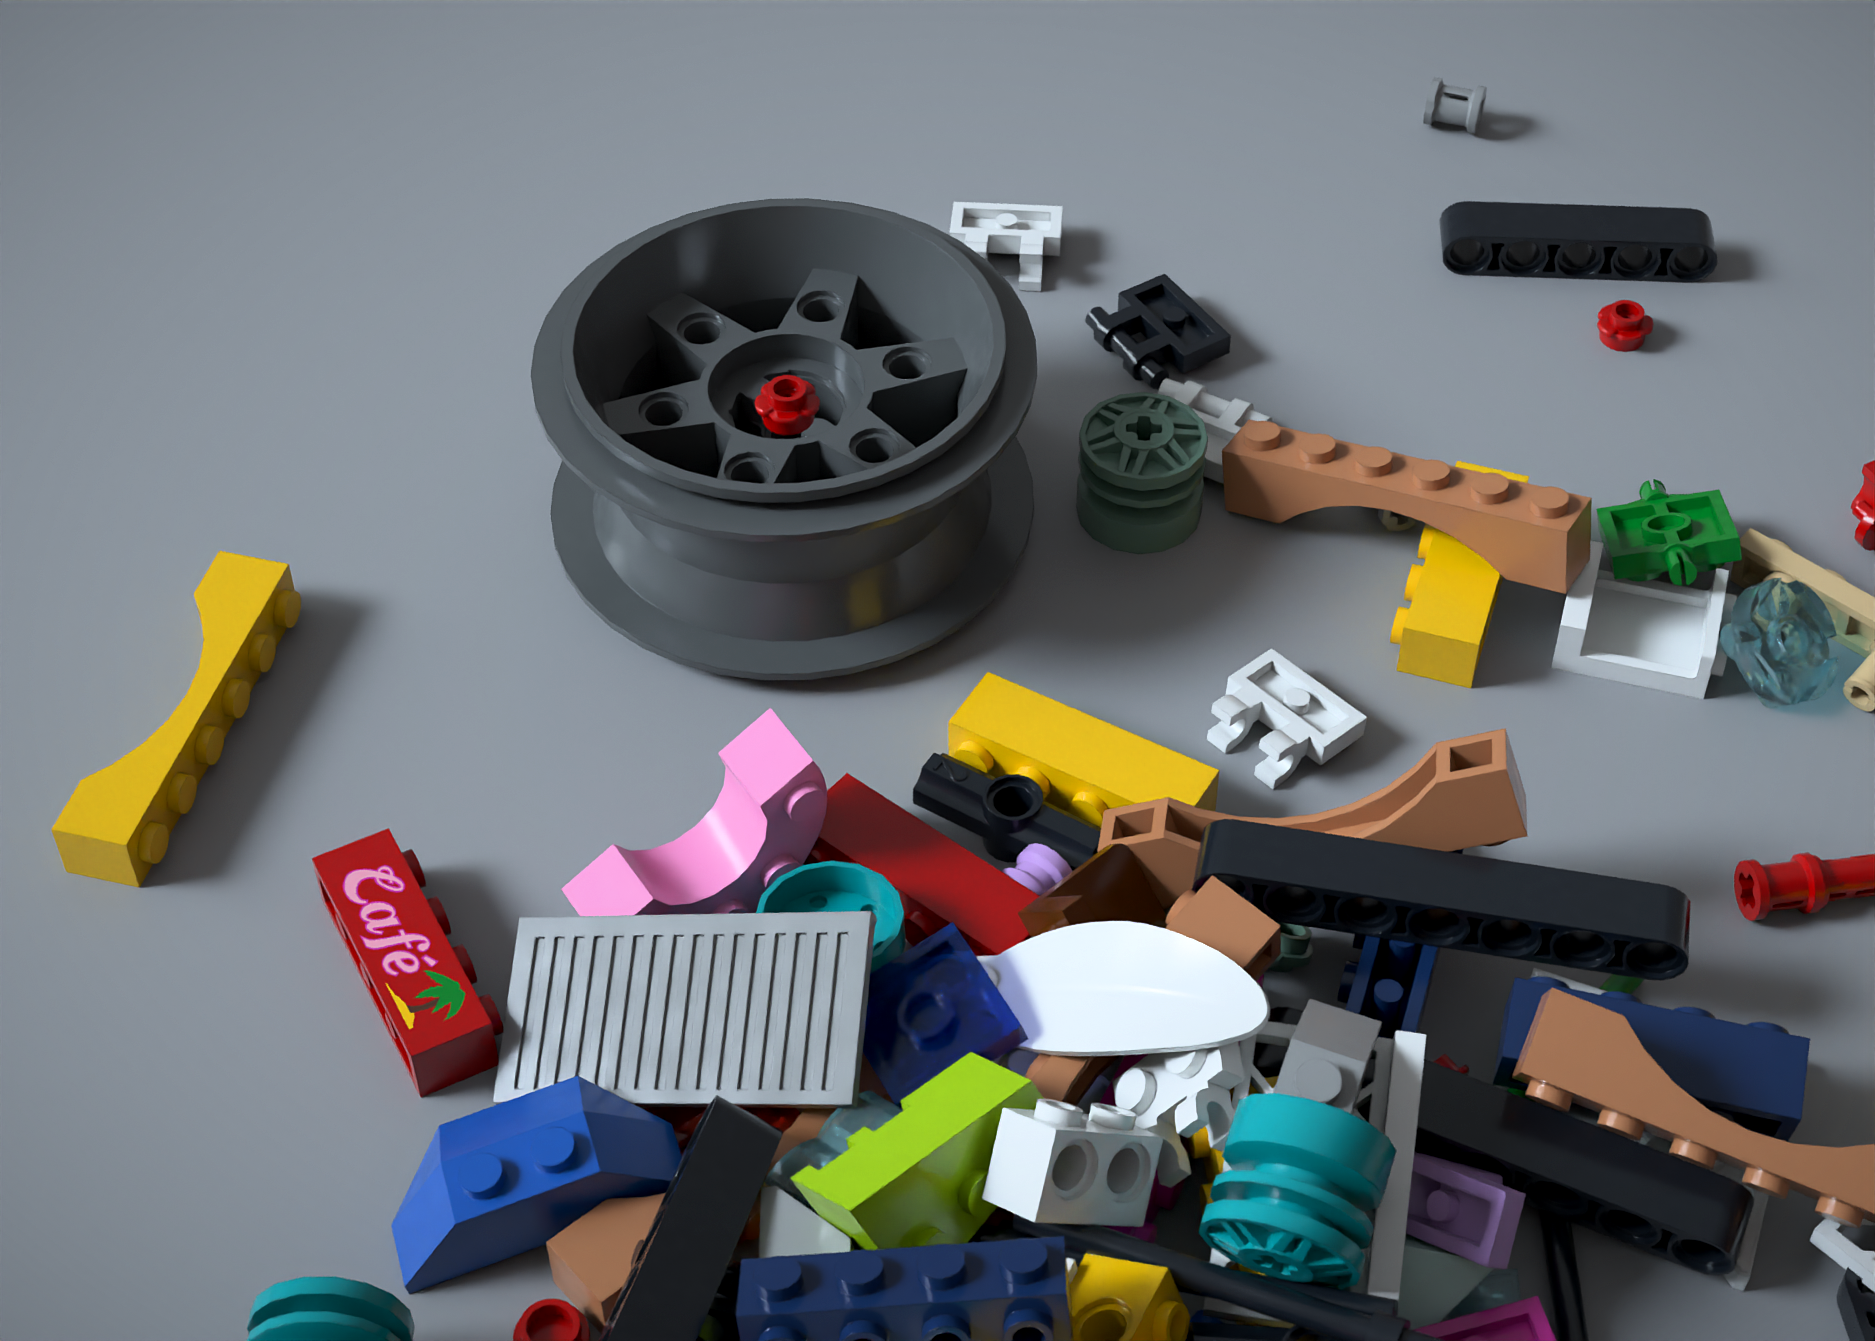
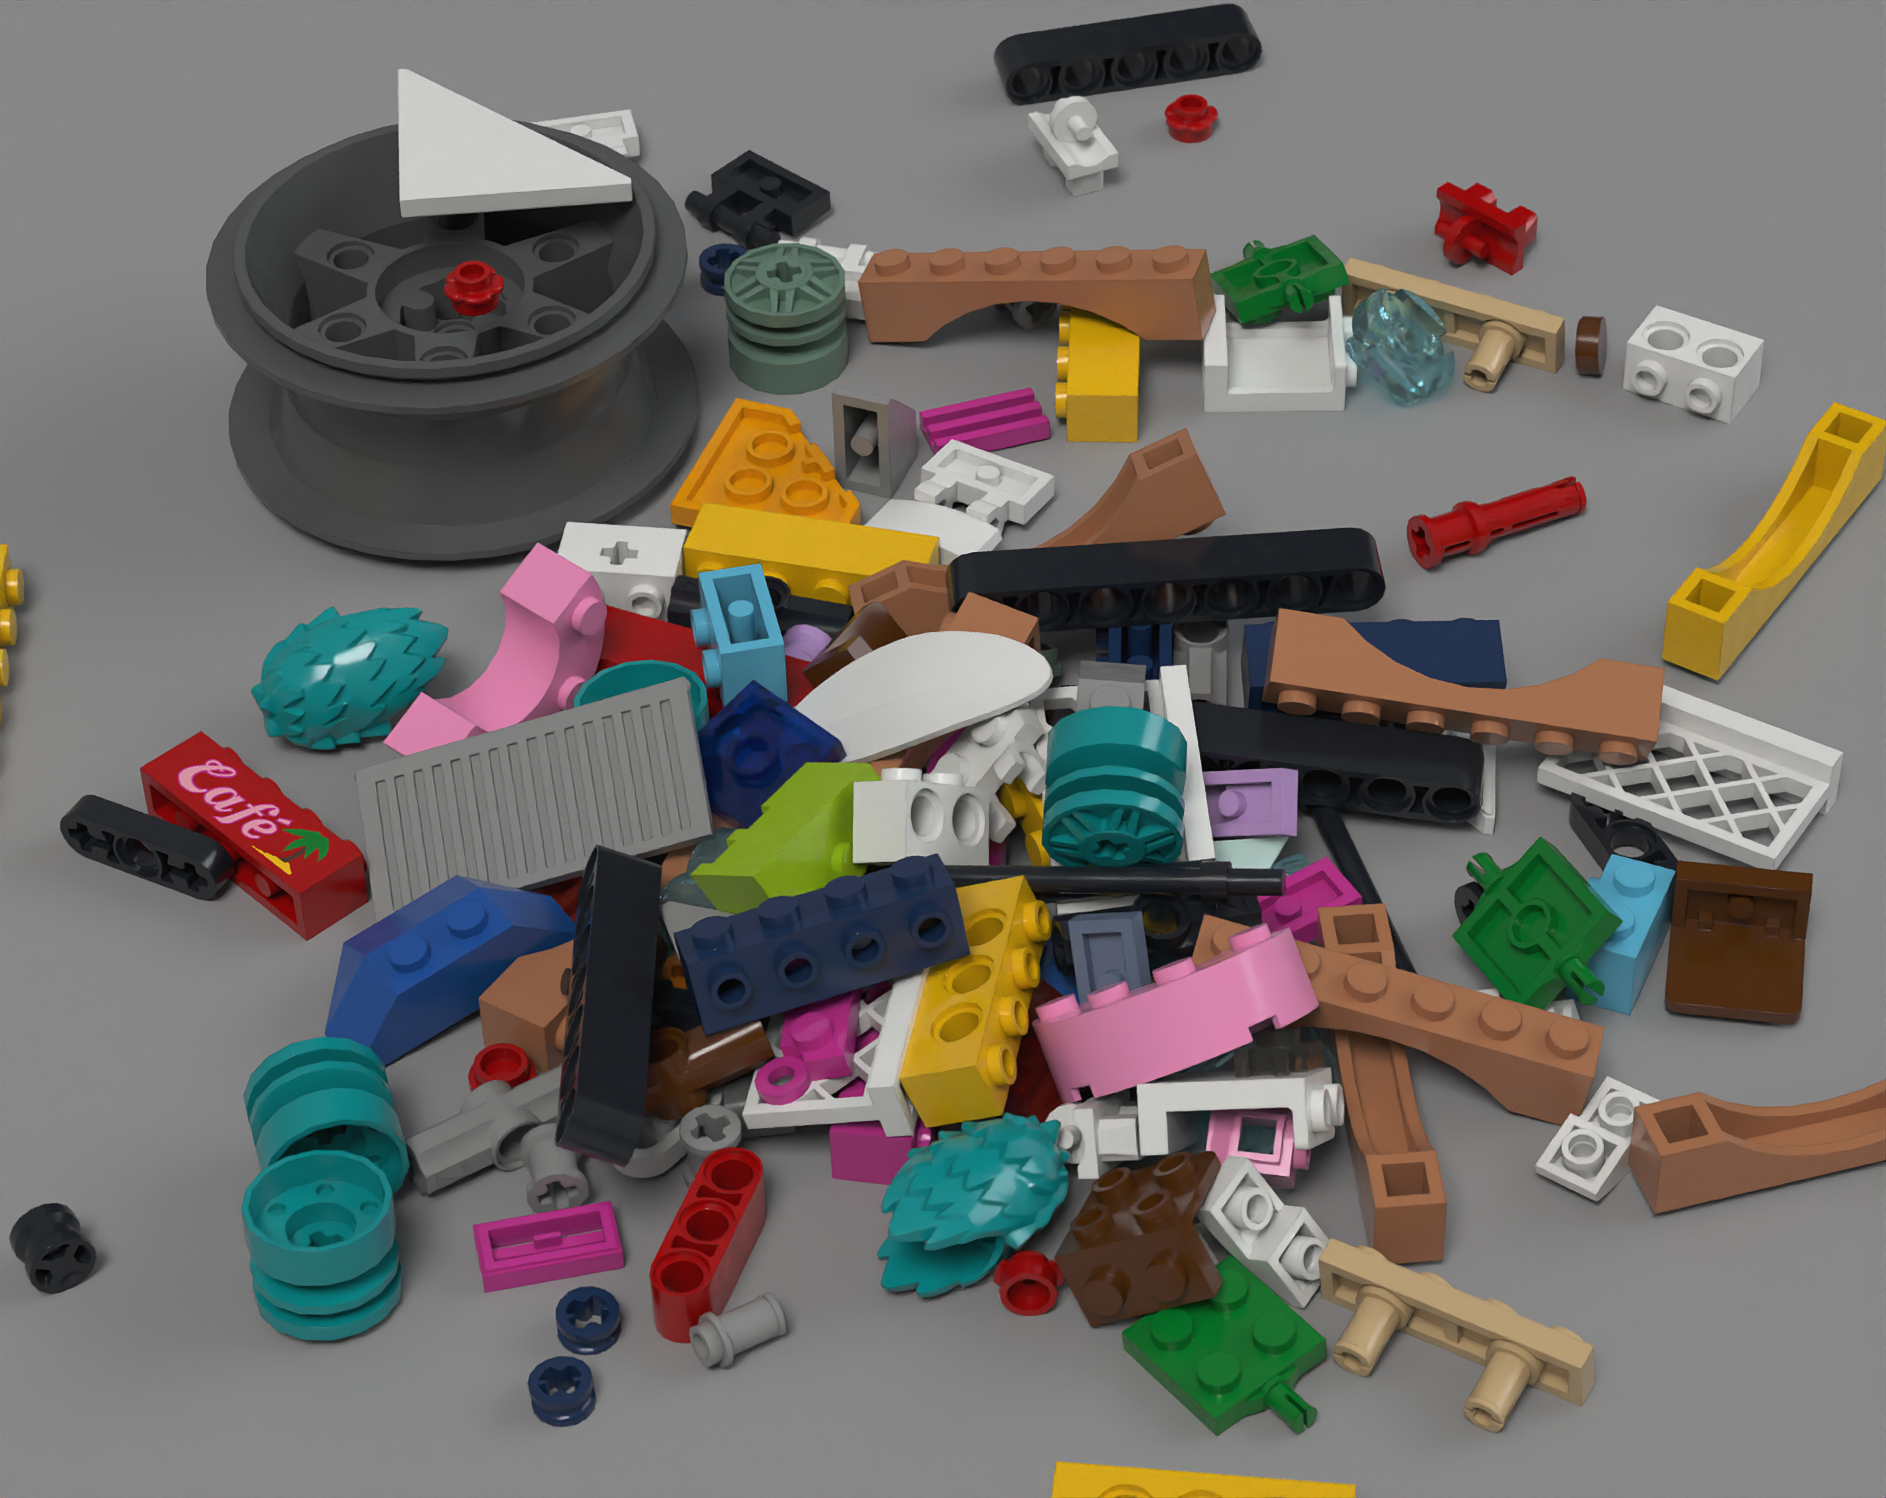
camera: 15 degrees left, 5 degrees down
(296, 948) = (178, 858): none -> black beam
(557, 796) = (347, 675): none -> teal head
(850, 260) = (477, 161): none -> white tile
(878, 727) = (628, 562): none -> white brick
(961, 858) = (739, 632): none -> medium azure brick
(1069, 645) = (765, 465): none -> light orange plate
(1098, 385) = (714, 264): none -> dark blue bush
(1186, 635) = (872, 441): none -> light grey slope
(1245, 767) = (956, 530): none -> white slope
(1315, 627) = (987, 422): none -> dark pink tile
(1459, 1005) = (1205, 654): none -> light grey piece
(1495, 333) = (1075, 144): none -> white hips

